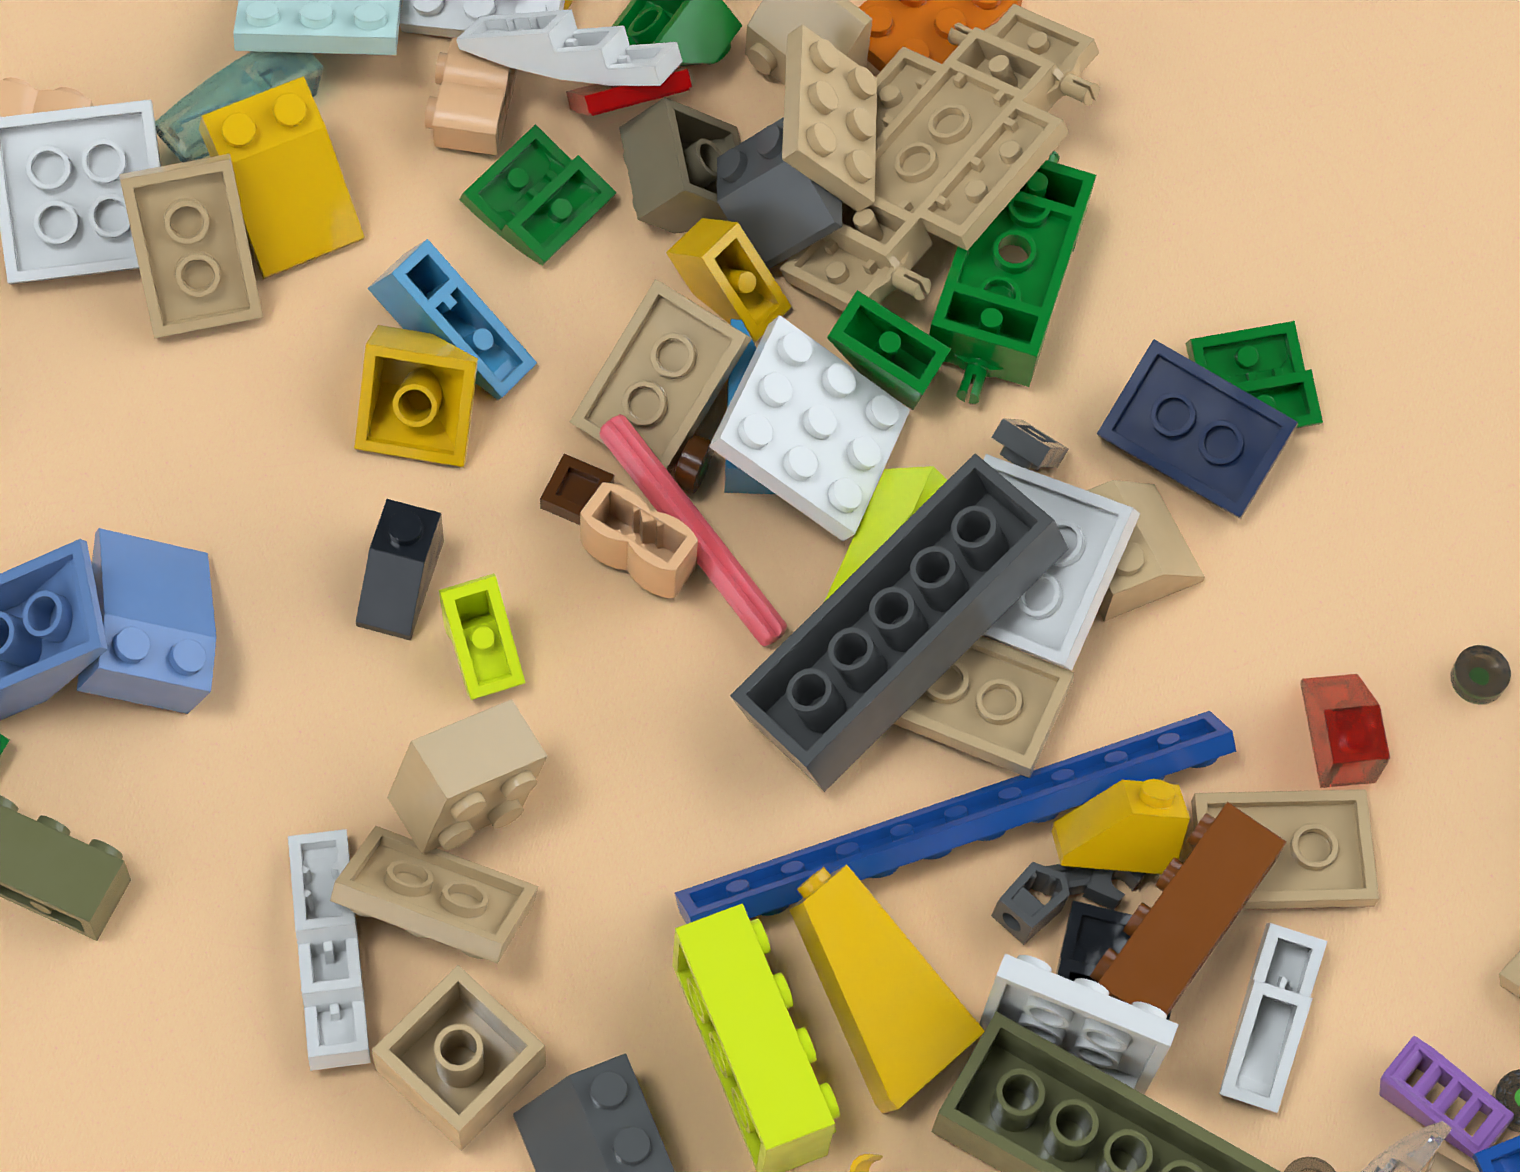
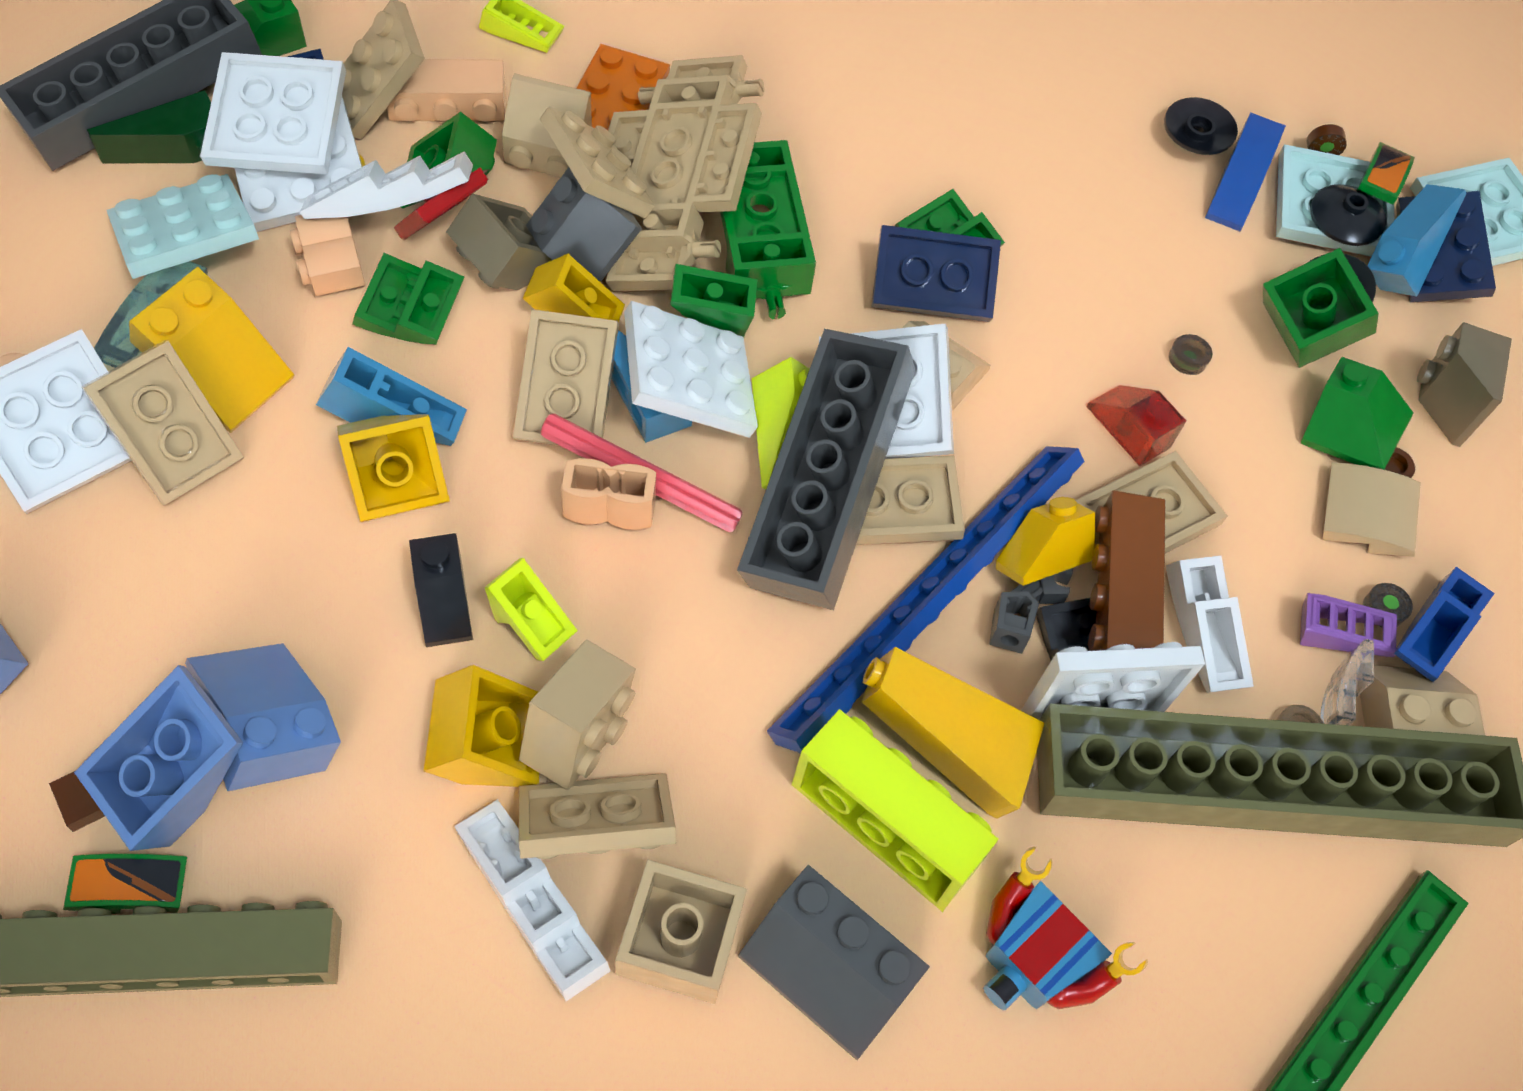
camera: 30 degrees left, 5 degrees down
(358, 744) = (479, 729): none -> yellow slope
(572, 487) = (541, 483): reddish brown tile -> none
(693, 463) = (617, 426): reddish brown tile -> none
(1028, 445) = (840, 319): dark grey plate -> none

